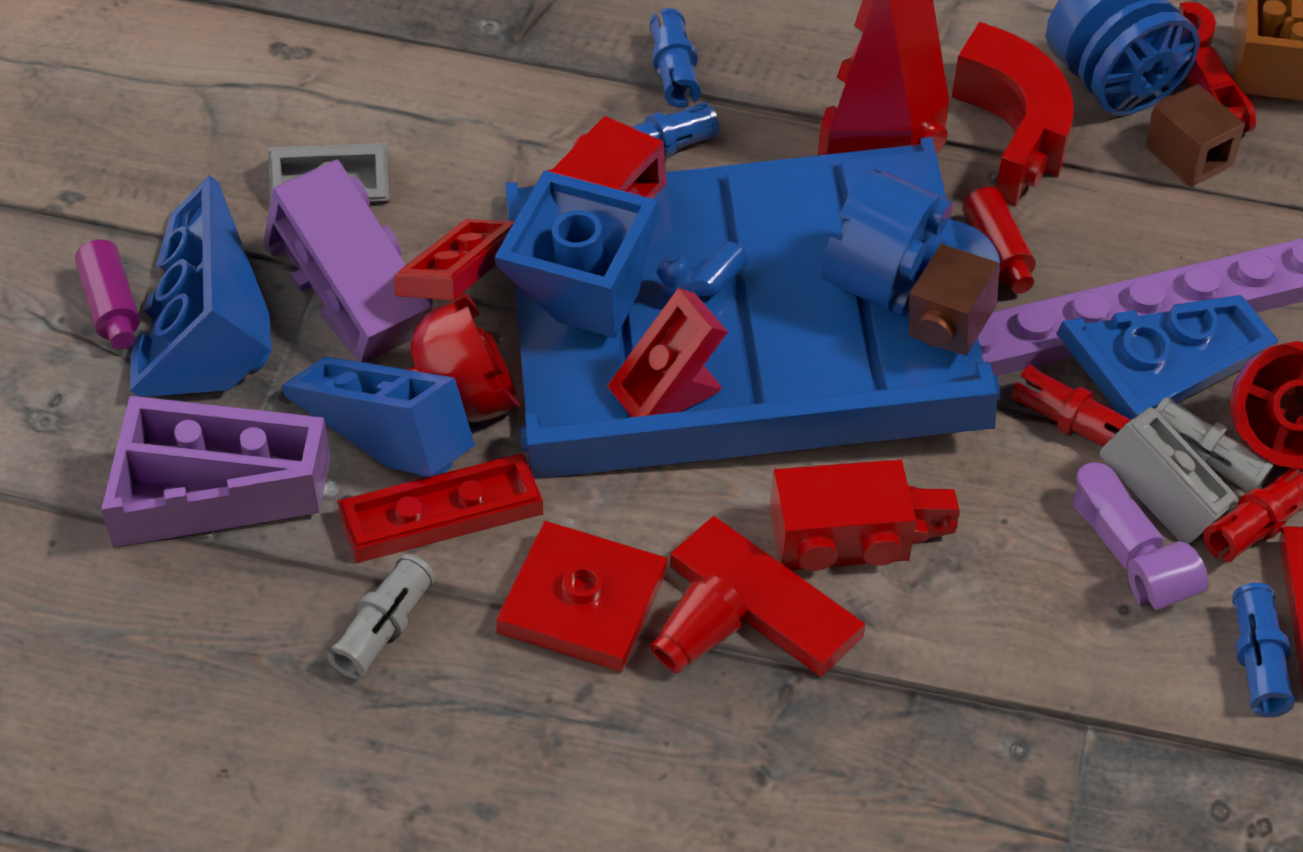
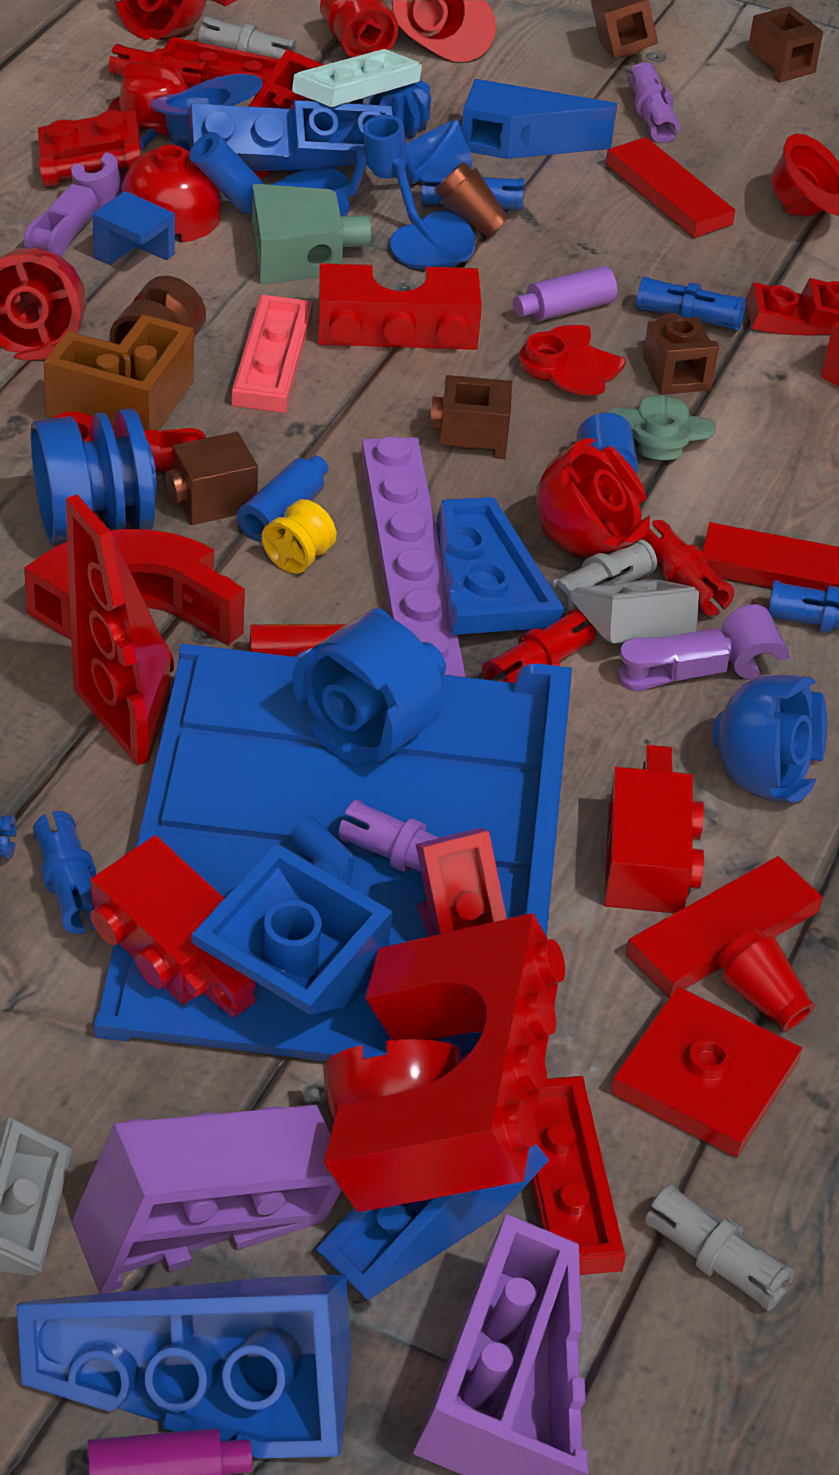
camera: 80 degrees left, 5 degrees down
(453, 261) = (260, 1062): red tile -> none
(541, 372) = (479, 1117): none -> red arch
(743, 320) = (385, 835): none -> medium lavender pin
(953, 299) = (472, 658): copper brick -> none
(1010, 596) = (772, 736): none -> blue cylinder
(1143, 206) = (299, 536): none -> yellow wheel
(1203, 192) = (296, 481): none -> blue cylinder

